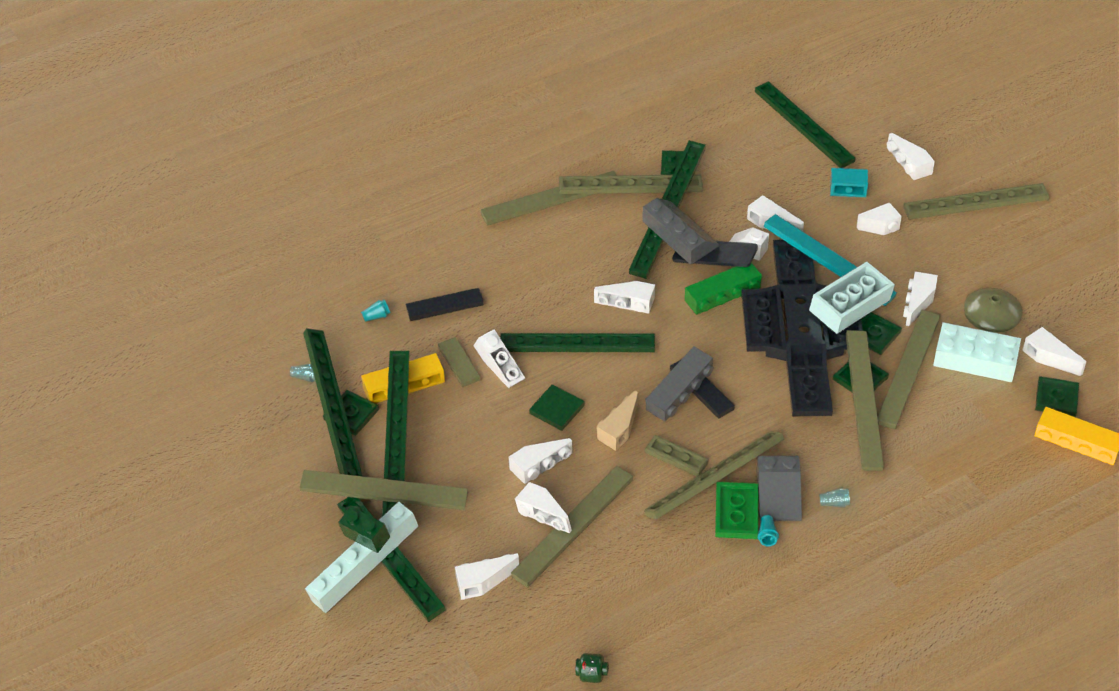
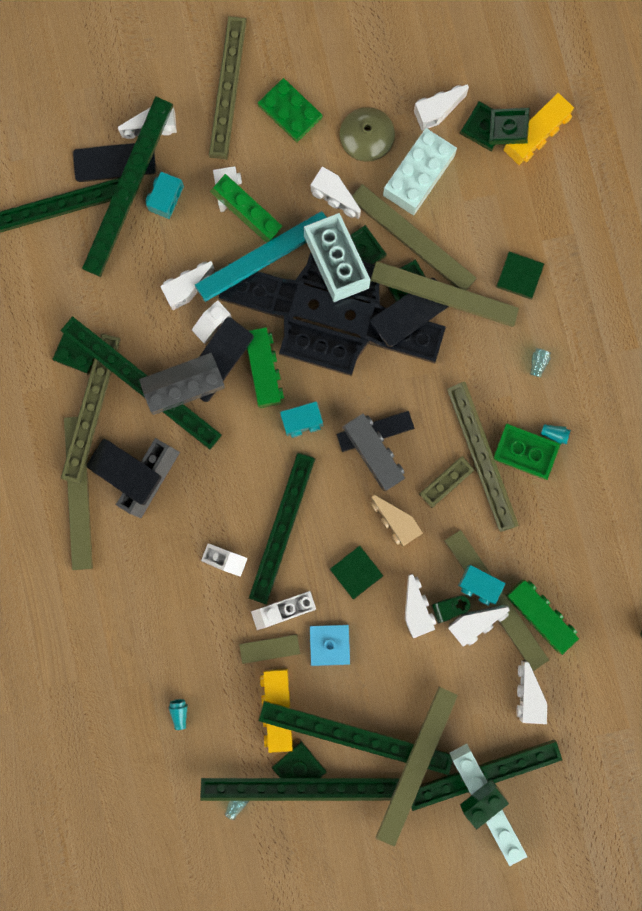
camera: 70 degrees left, 35 degrees up
(444, 304) = (189, 642): black tile -> none
(478, 405) = (329, 645): none -> medium azure plate
(530, 307) = (224, 559): none -> white slope
(553, 484) = (447, 610): none -> dark green piece
(570, 564) = (542, 617): none -> green brick
(582, 213) = (124, 472): none -> black piece
(582, 499) = (481, 584): none -> teal brick
(583, 233) = (160, 459): none -> dark grey brick
(628, 295) = (244, 457): white slope -> none
(687, 326) = (302, 419): none -> teal brick
(779, 487) = (515, 406): dark grey slope -> none
(824, 373) = (405, 317): none -> black piece
(842, 154) = (128, 186): none -> dark green plate
(863, 146) = (105, 162): none -> black piece
(865, 229) = (246, 208): none -> green brick
(918, 462) = (520, 275): none -> dark green tile
(981, 248) = (290, 110): none -> green plate
(1064, 404) = (509, 126): none -> dark green tile

